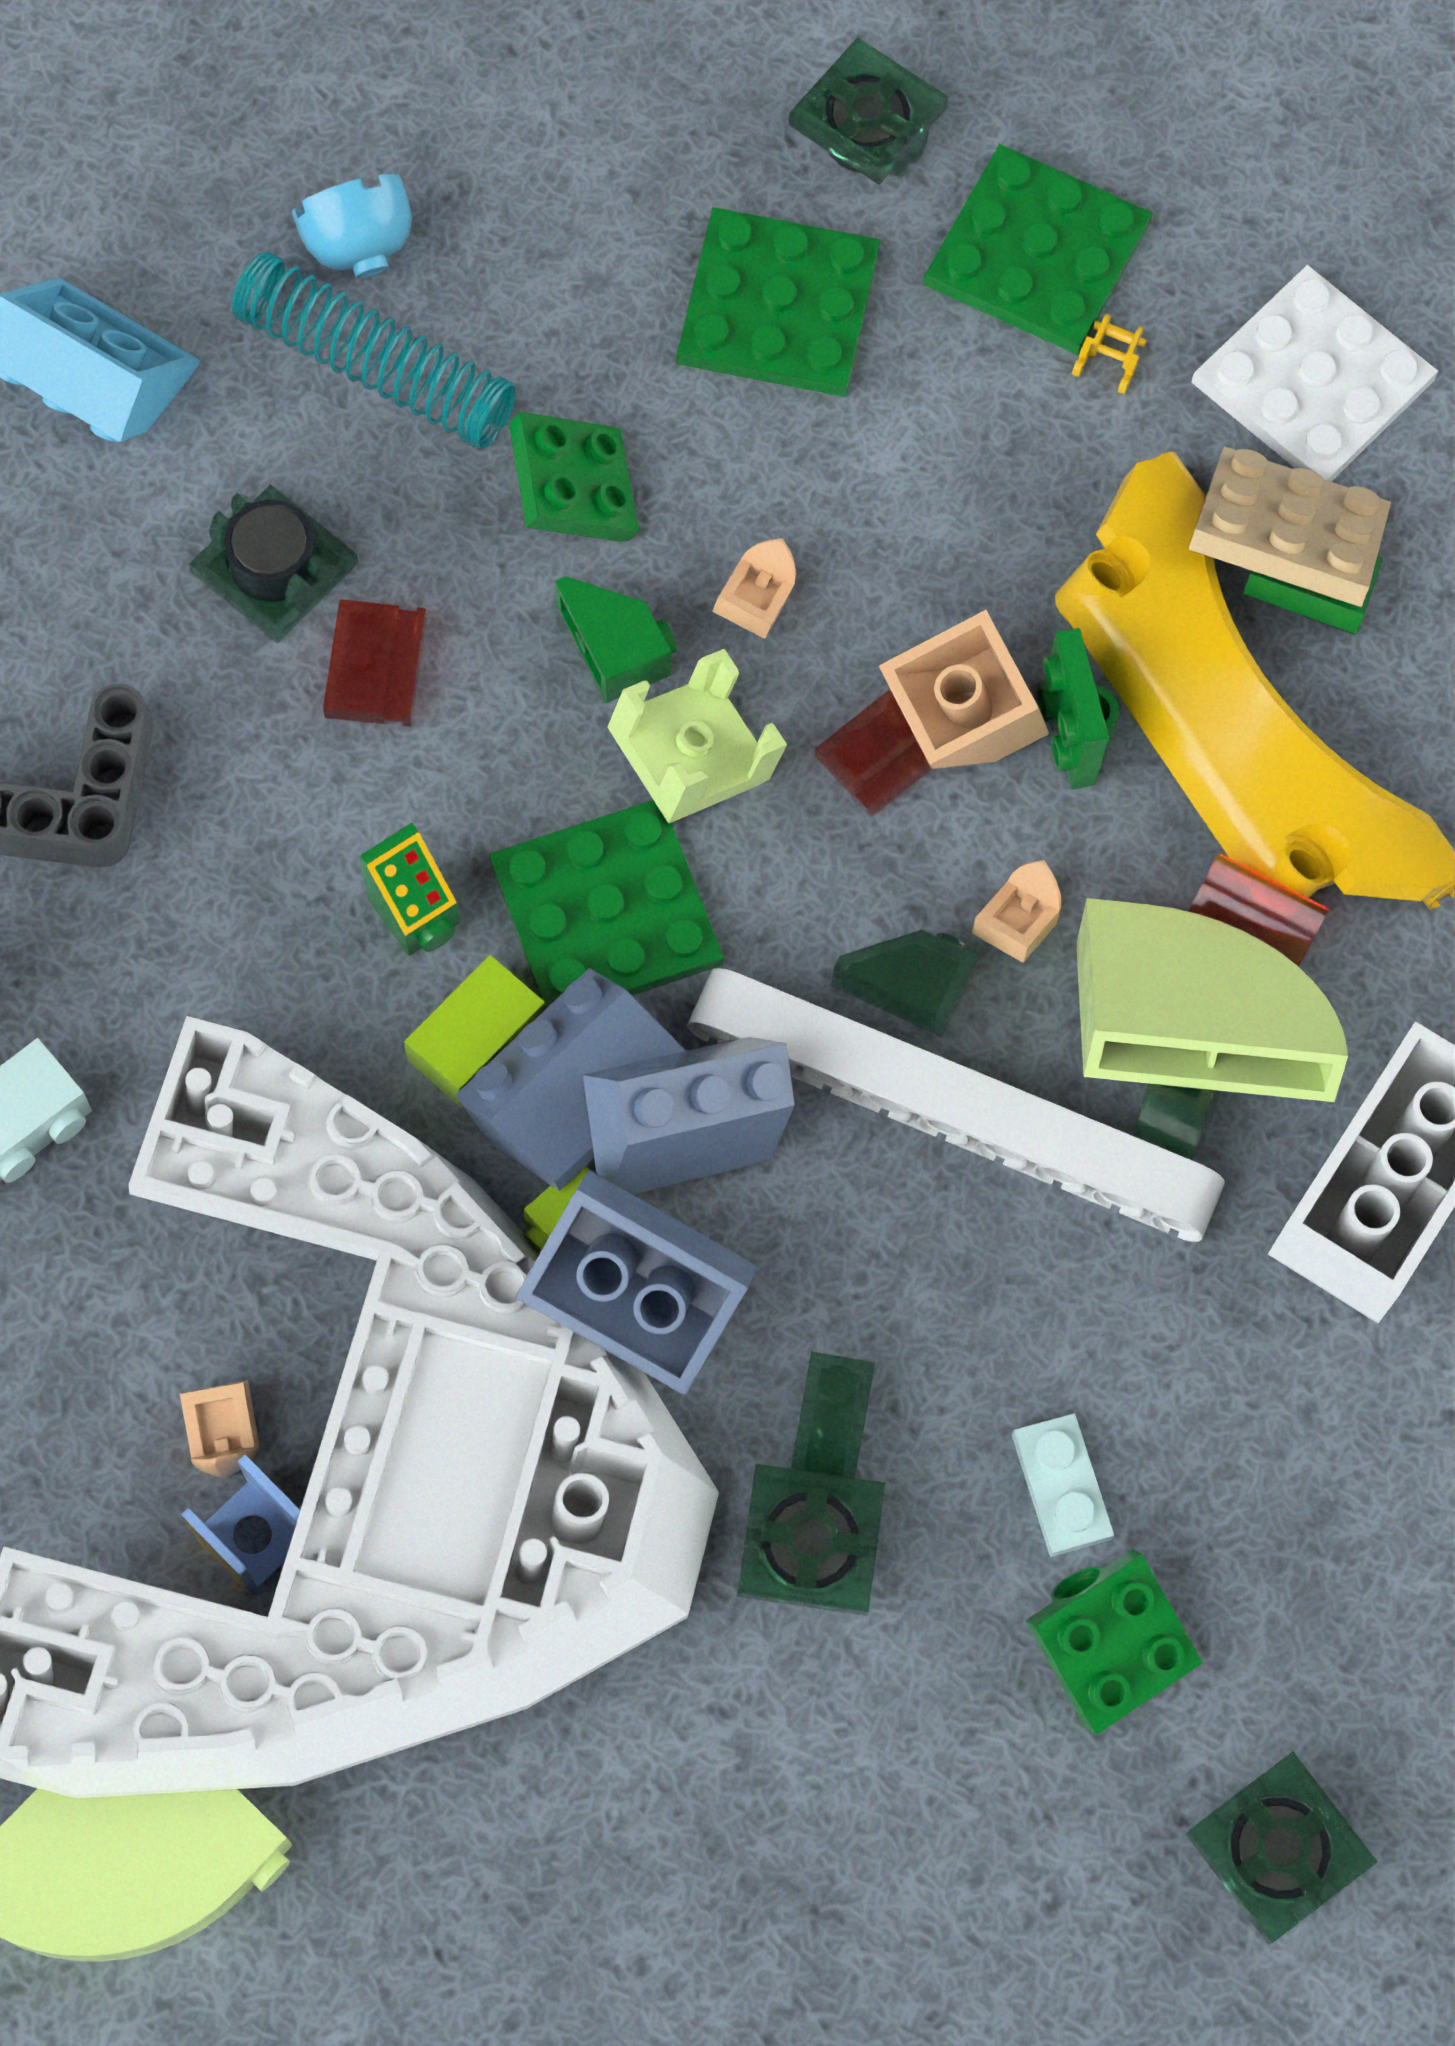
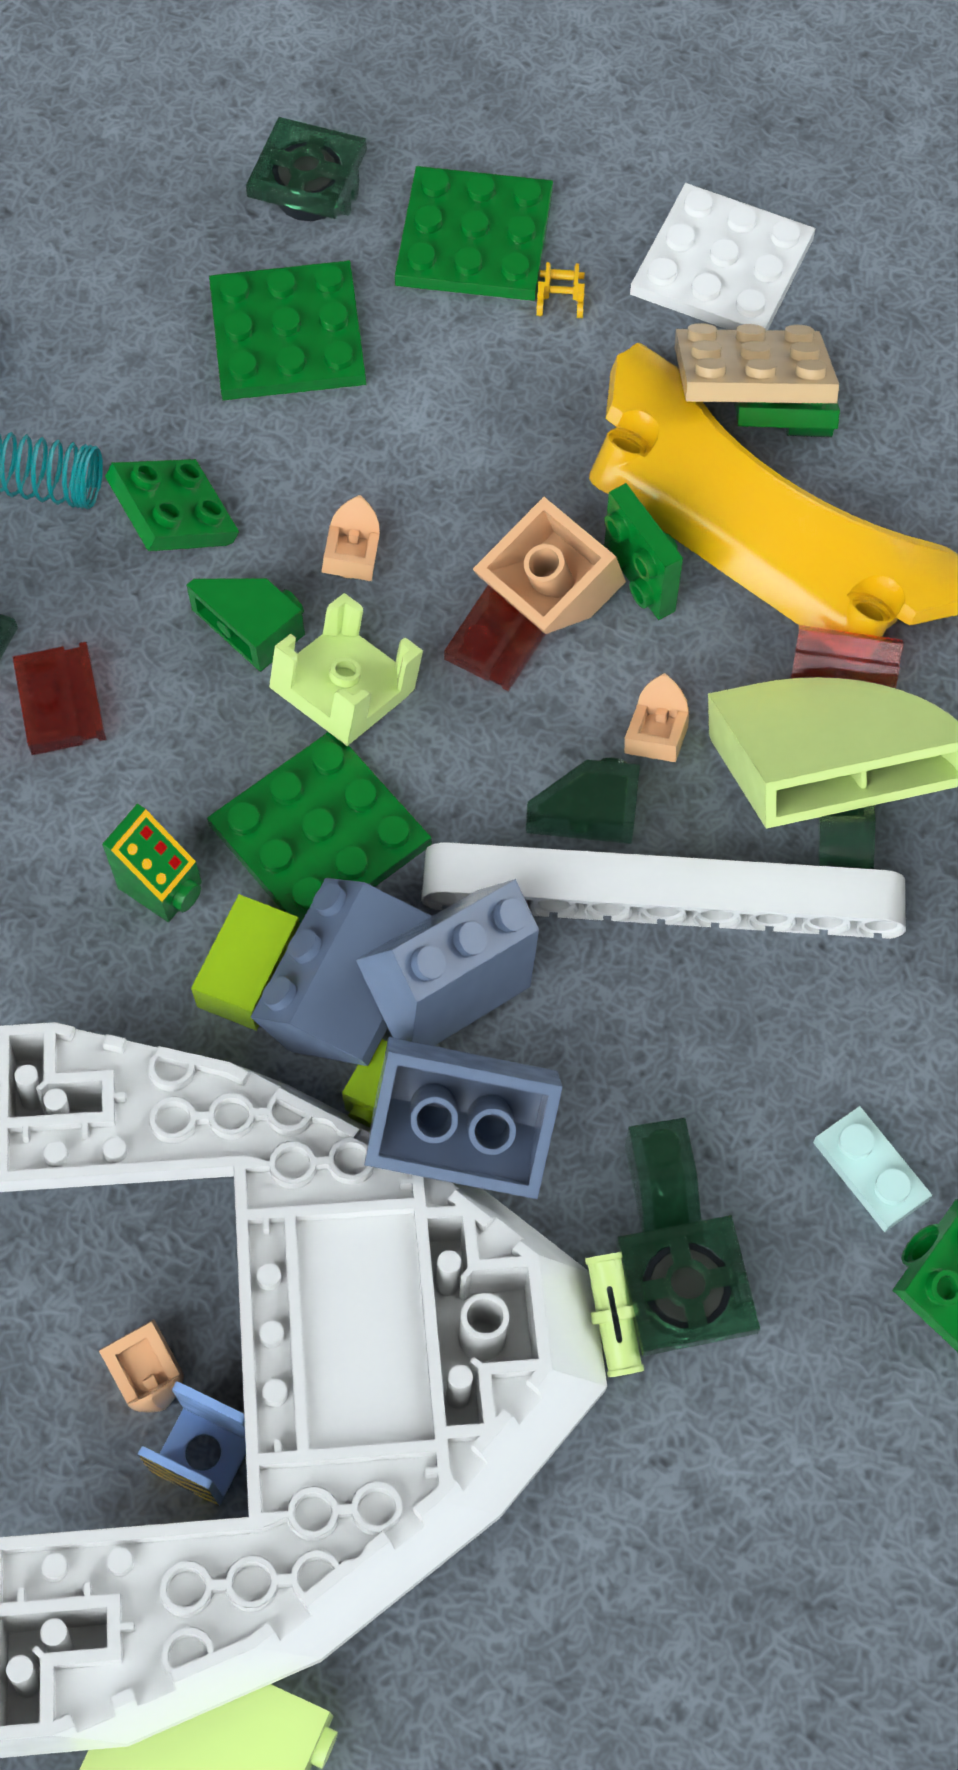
camera: 15 degrees left, 5 degrees down
(719, 1589) = (622, 1356): none -> yellowish green pin

